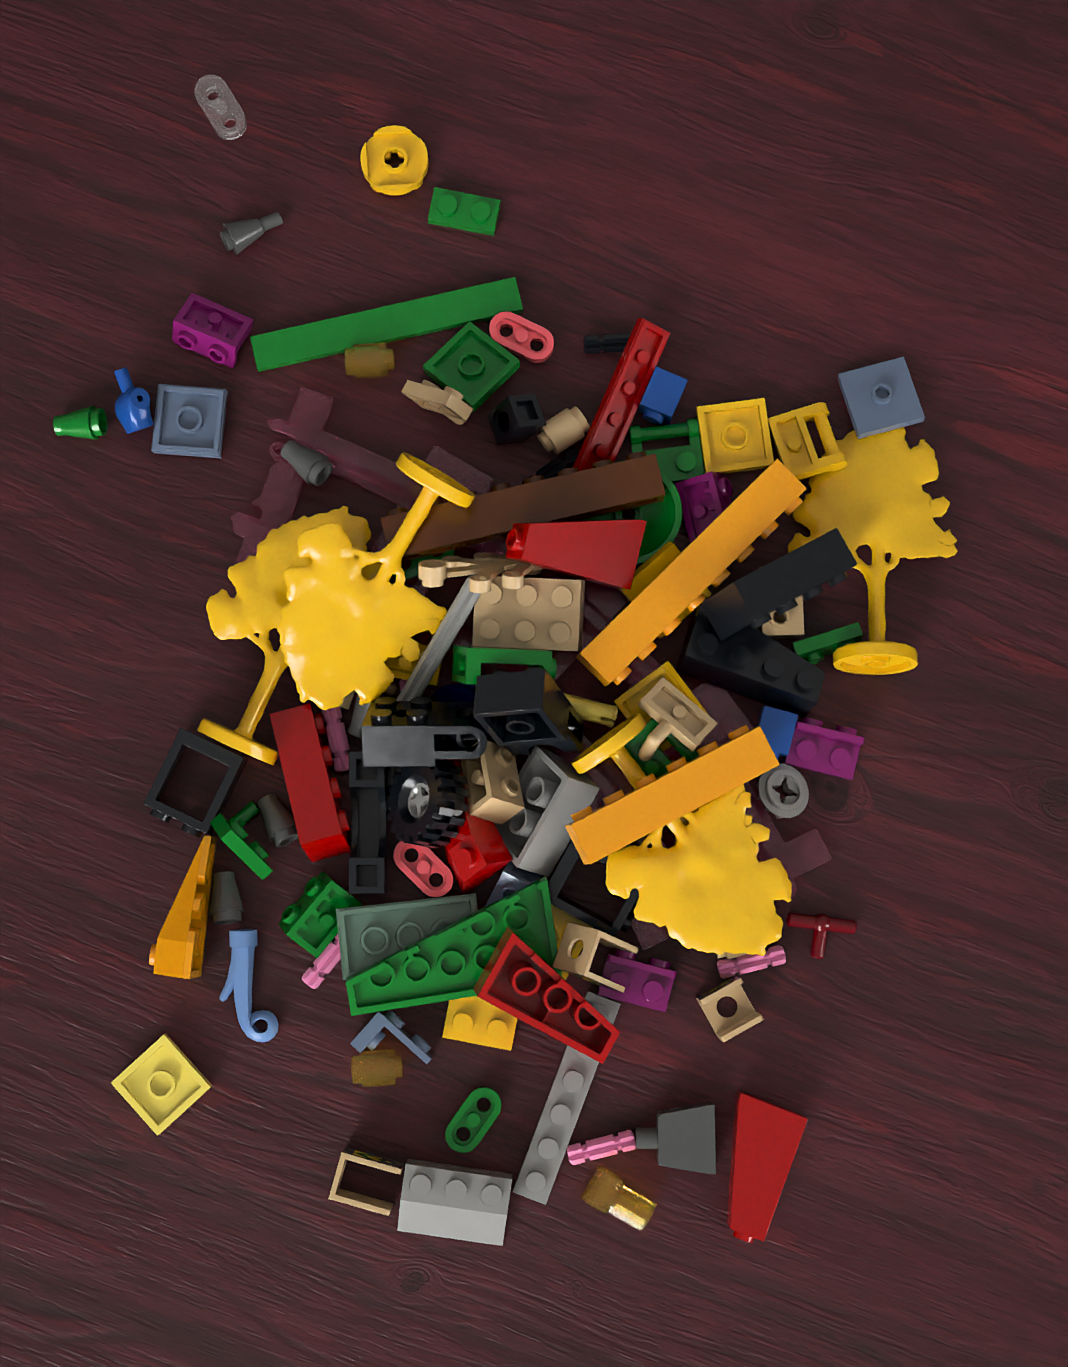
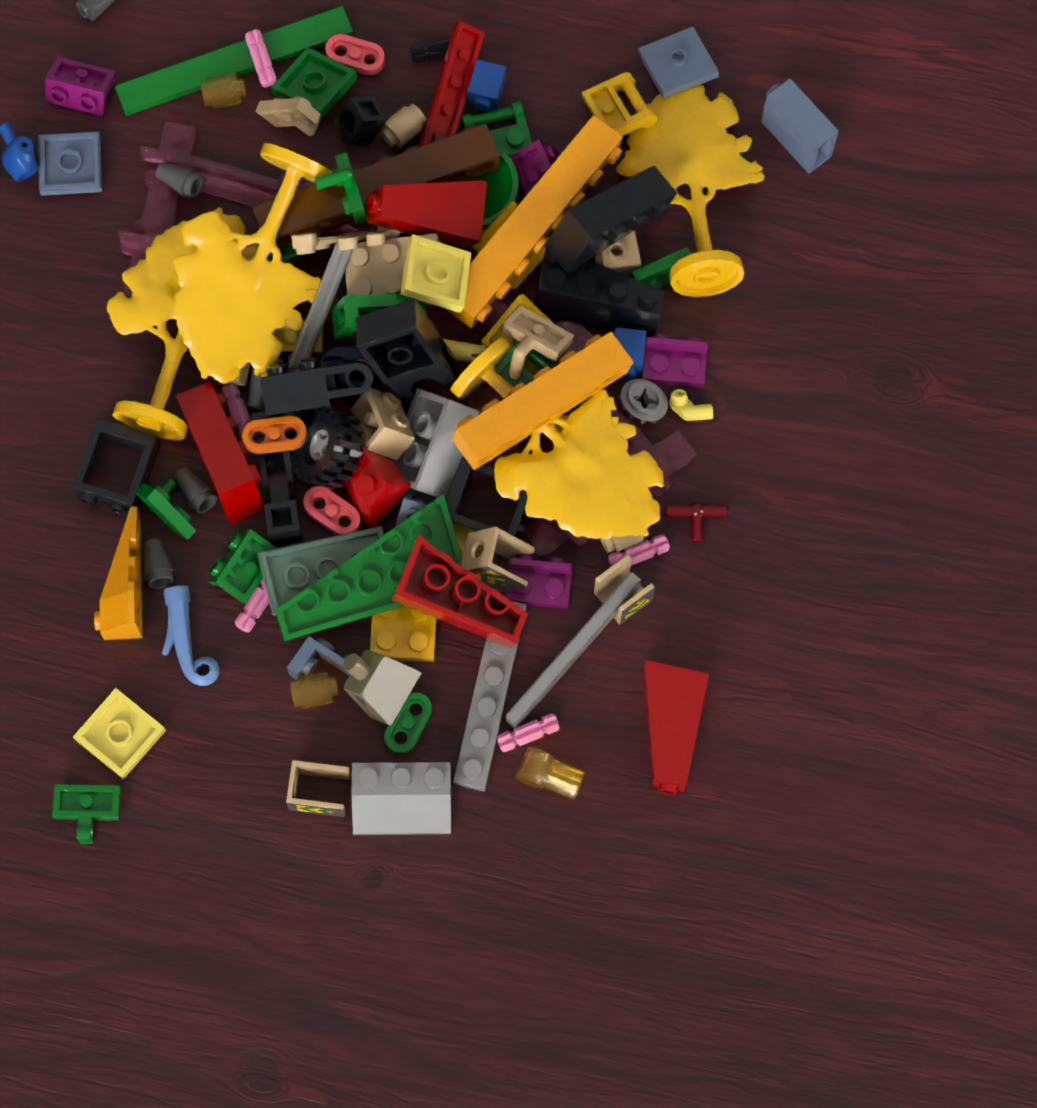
camera: 10 degrees left, 10 degrees down
(116, 1159) = (85, 805): none -> green plate
(371, 783) = (274, 432): none -> orange plate
(415, 328) = (260, 58): none -> bright pink axle
(449, 1075) = (379, 684): none -> torso
(486, 504) = (344, 176): none -> green plate
(573, 632) = (436, 273): none -> light yellow plate
(663, 1066) = (572, 651): none -> light grey tile
(682, 1138) = (600, 711): dark grey torso -> none
(735, 436) = (554, 110): yellow plate -> none
(828, 804) = (686, 409): none -> light yellow arm
(1005, 495) = (799, 125): none -> sand blue brick

